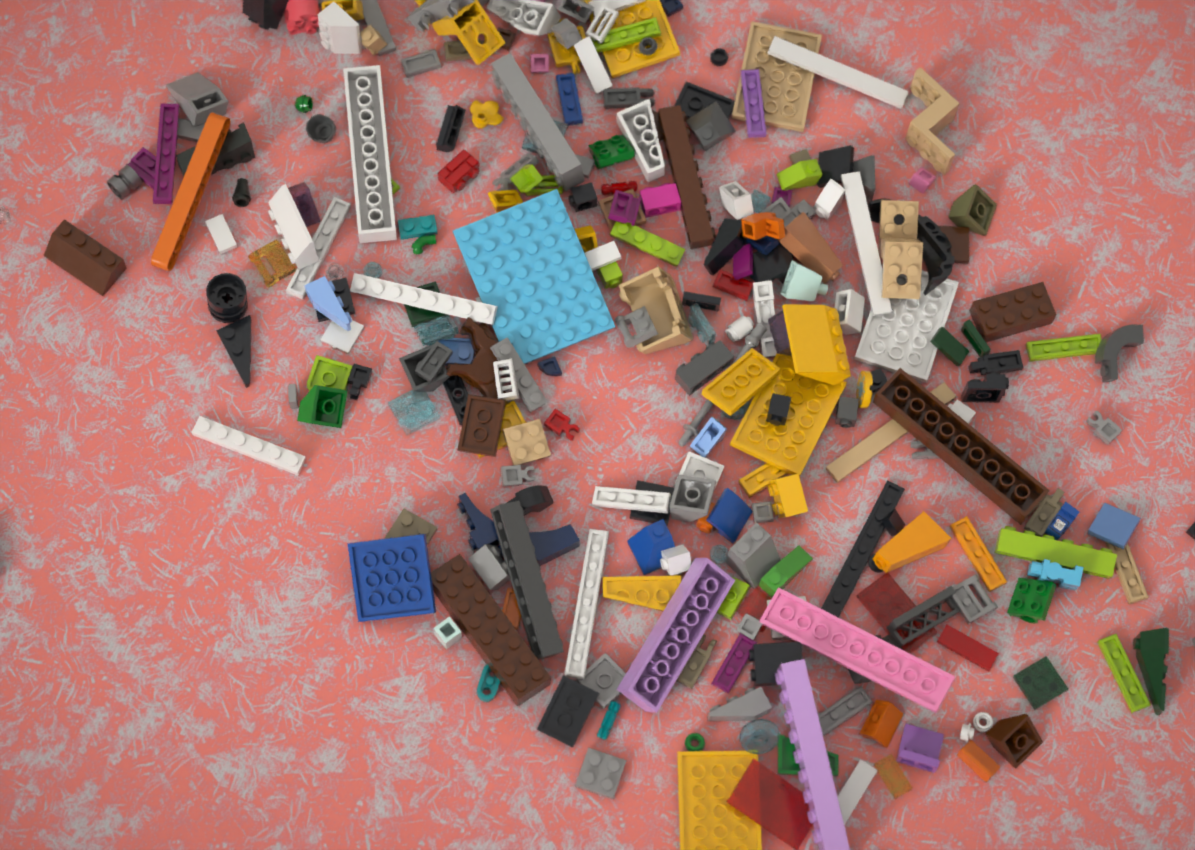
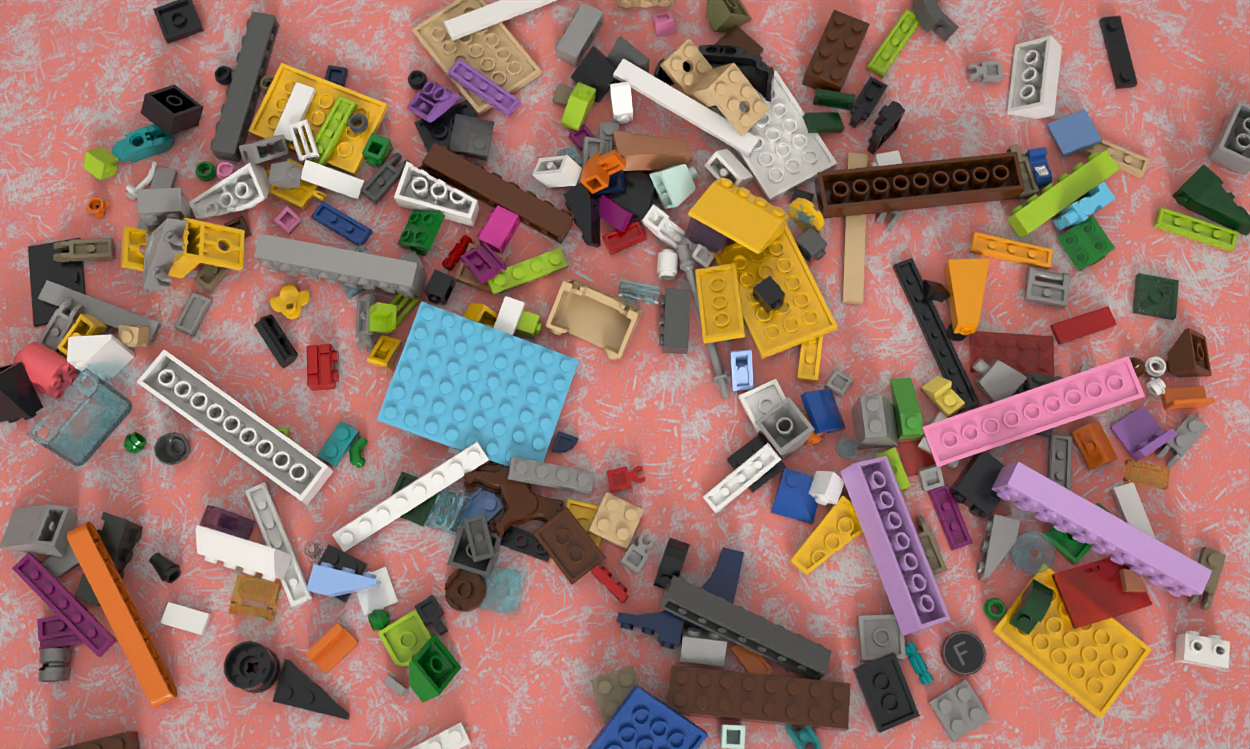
camera: 45 degrees left, 5 degrees up
(282, 337) = (332, 648): none -> orange panel
(291, 65) = (88, 424): none -> clear light blue windscreen
(326, 349) = (379, 619): none -> green plate
(373, 270) = (343, 515): clear light blue plate -> none
(392, 386) = (465, 590): none -> reddish brown tile
(480, 481) = (603, 576): none -> red plate
(499, 381) = (567, 494): white slope -> none
(586, 604) = (802, 594): white tile -> none
(642, 75) = (375, 145): none -> green brick
(642, 324) = (596, 337): light grey plate -> none
(643, 745) = (963, 653): none -> black tile
(704, 301) = (619, 273): black tile -> none
(711, 79) = (432, 101): none -> medium lavender slope
(715, 758) = (1033, 607): none -> dark green brick
(787, 496) = (849, 351): yellow brick -> none
(799, 821) = (1131, 581): none -> nougat tile
(818, 589) = (943, 396): none -> light yellow slope
(856, 131) = (579, 34): none -> light grey brick
(864, 612) = (997, 379): none -> light grey torso
(923, 609) = (1032, 336): dark grey fence -> none
(944, 782) = (1188, 432): none -> light grey hinge
(968, 707) = (1138, 365): none -> reddish brown plate
(1132, 466) = (1035, 78): none -> white slope

